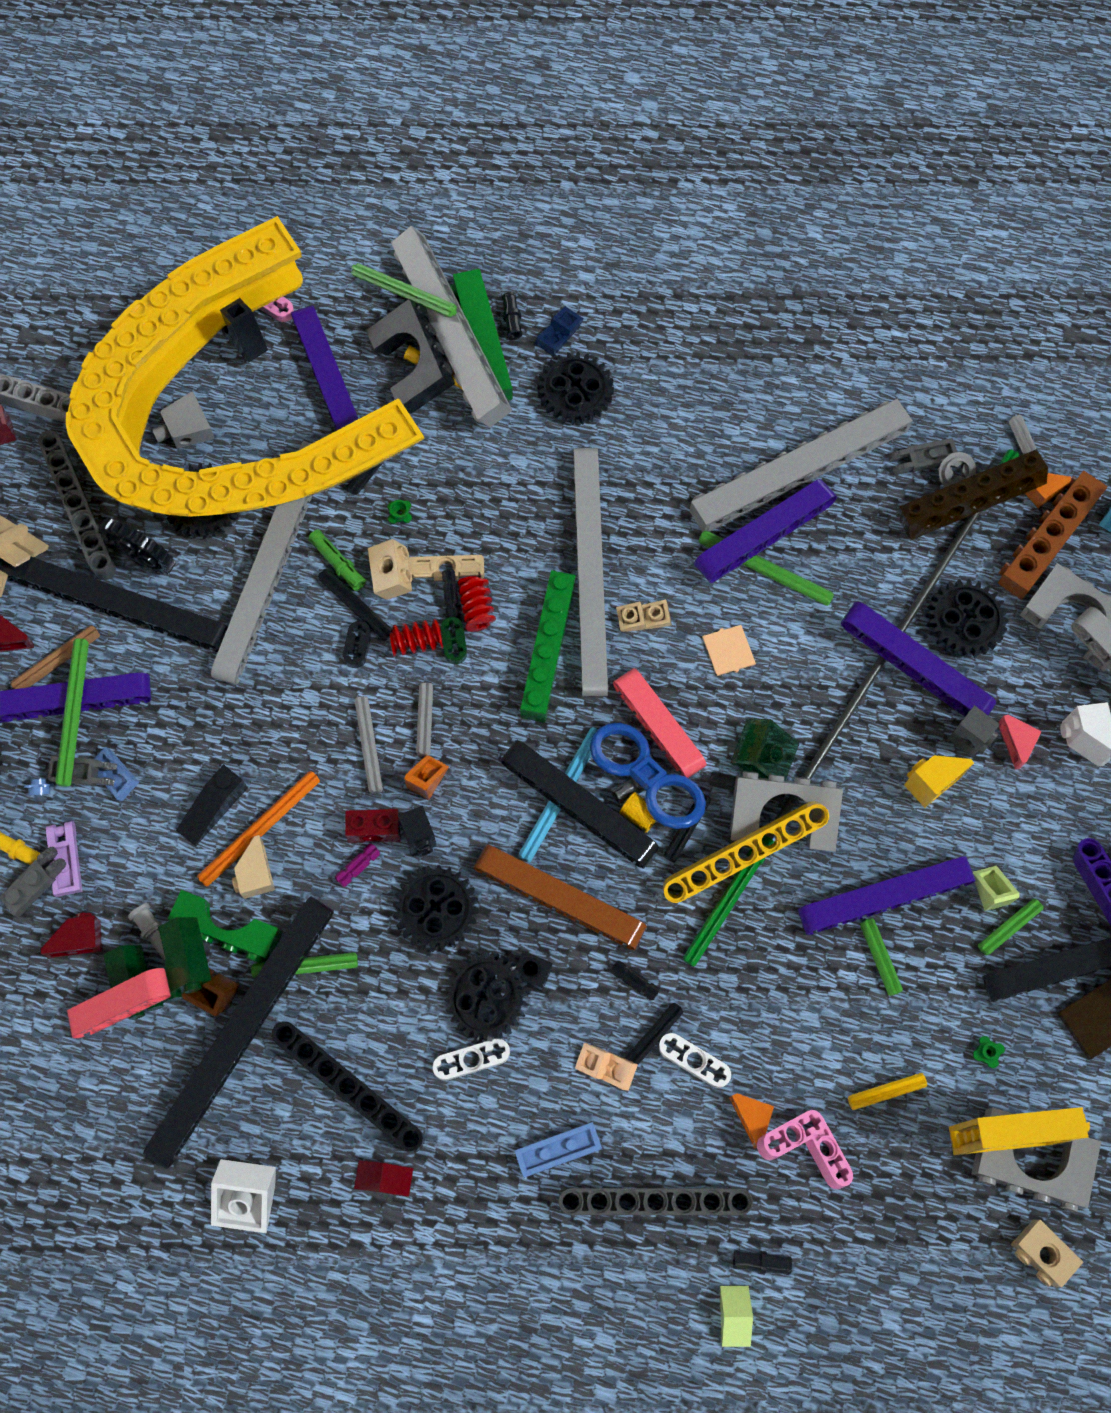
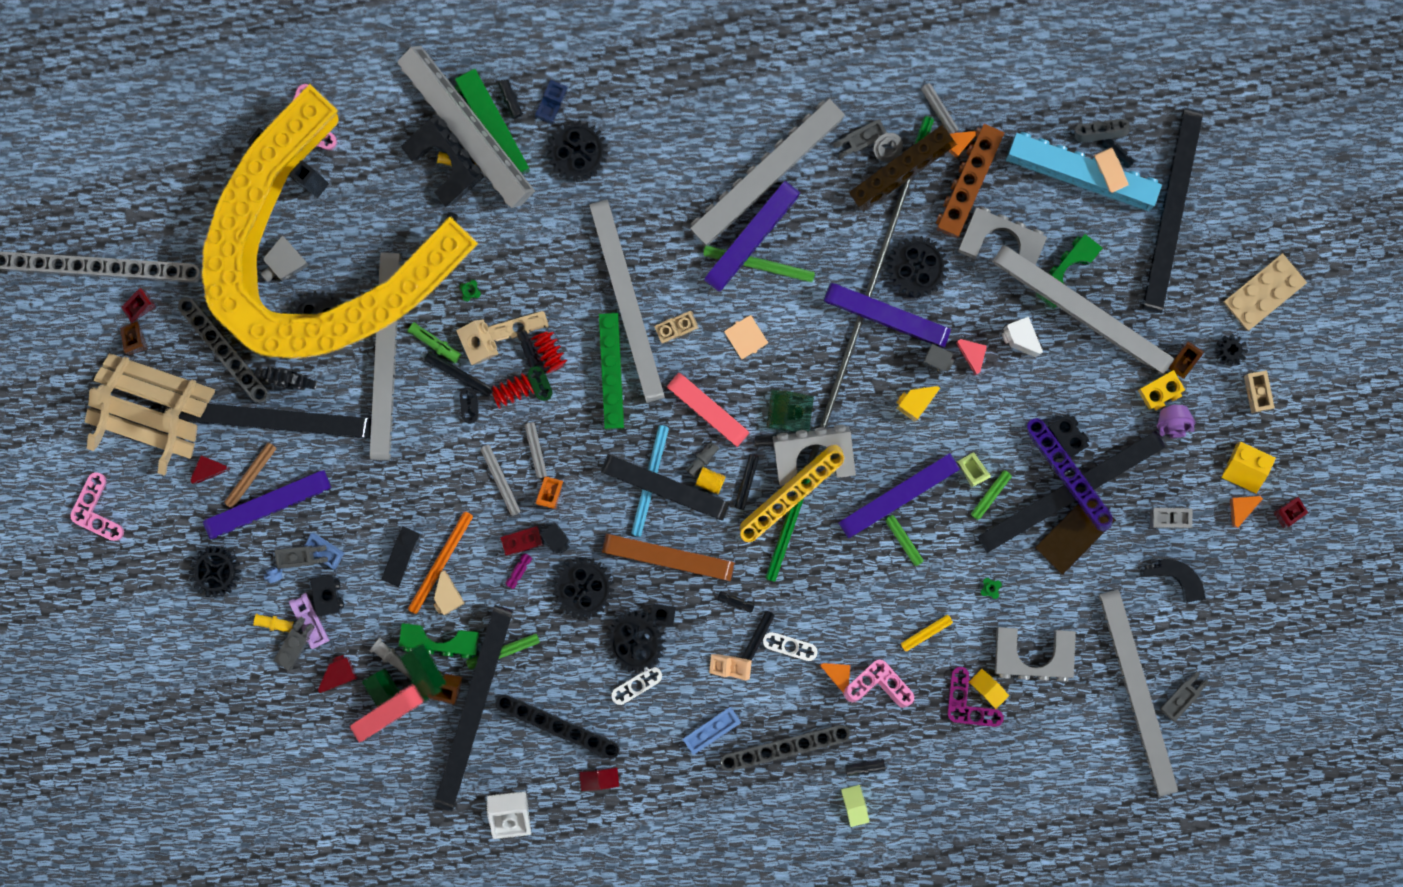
camera: 10 degrees left, 15 degrees up
(72, 713) = (280, 515): bright green axle -> none
(90, 818) = (319, 586): none -> black brick
(324, 367) = (381, 191): dark purple beam -> none
(404, 290) = (420, 105): bright green axle -> none
(648, 775) = (709, 453): blue bar -> none
(917, 1207) = (961, 704): none -> magenta beam
(961, 1193) = (989, 688): none -> yellow slope
(1019, 1131) = (1012, 645): yellow window -> none
(1062, 1260) = (1063, 715): tan brick -> none

